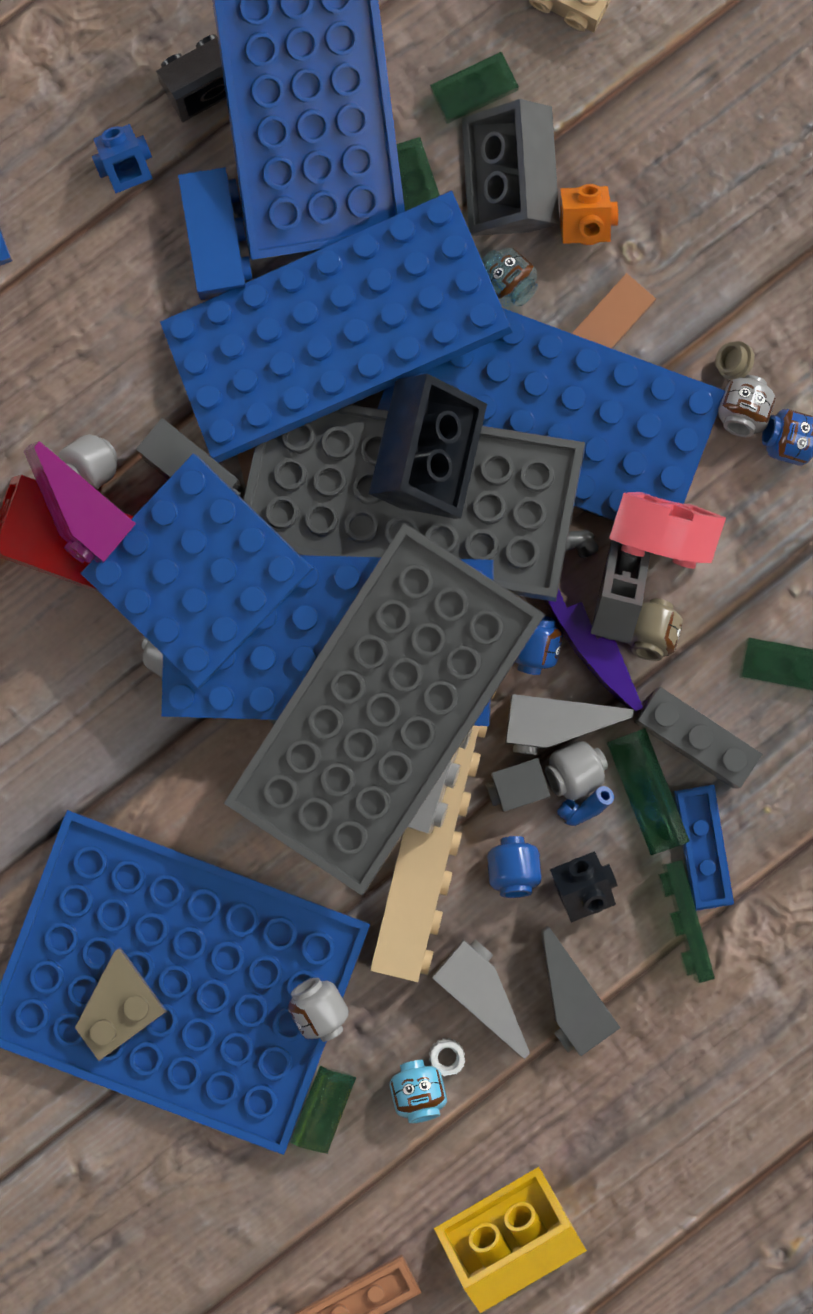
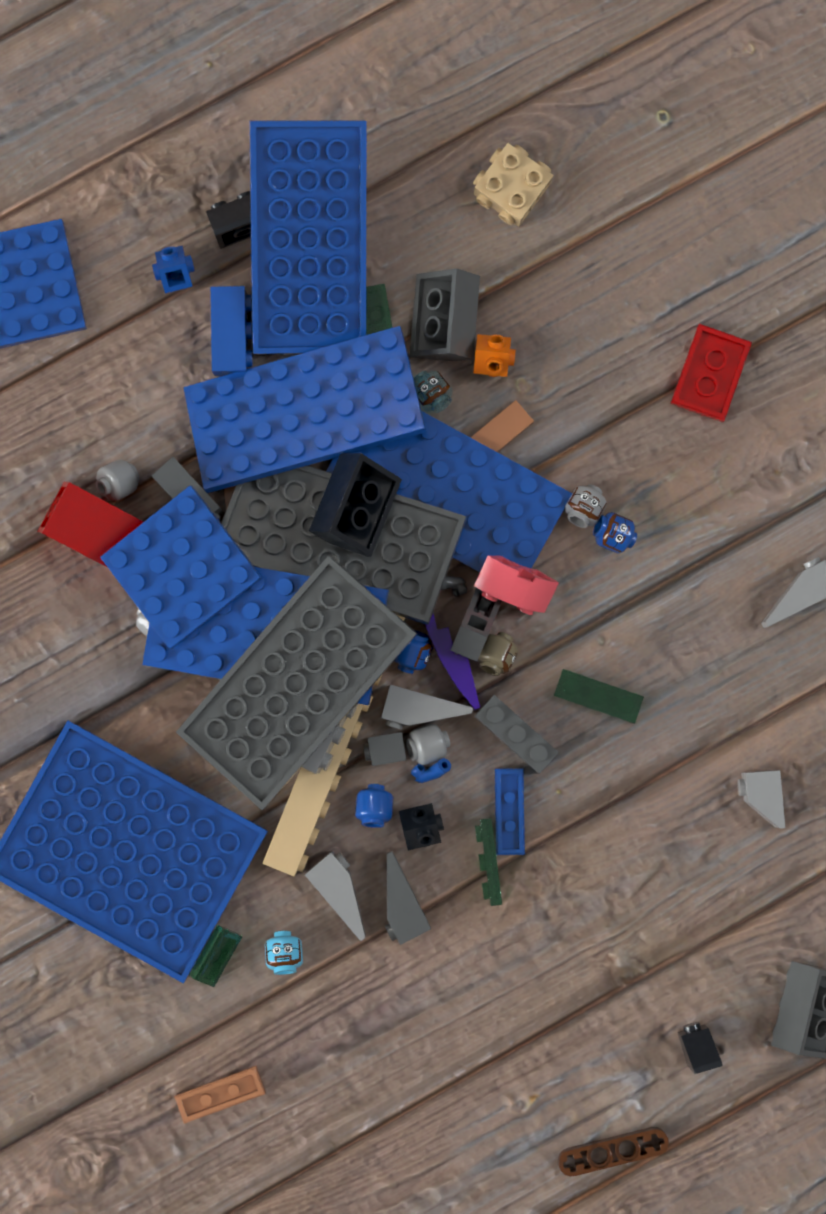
camera: 10 degrees right, 0 degrees up
(79, 511) = (105, 515): magenta slope -> none
(117, 1007) = (82, 863): dark tan wing -> none
(318, 1009) = (221, 885): light grey head -> none
(442, 1044) = (308, 922): white axle -> none
(474, 87) = (428, 254): clear green plate -> none
(509, 1240) = (332, 1066): yellow slope -> none
(648, 792) = (476, 766): clear green plate -> none
(735, 360) = (582, 472): dark tan plate -> none

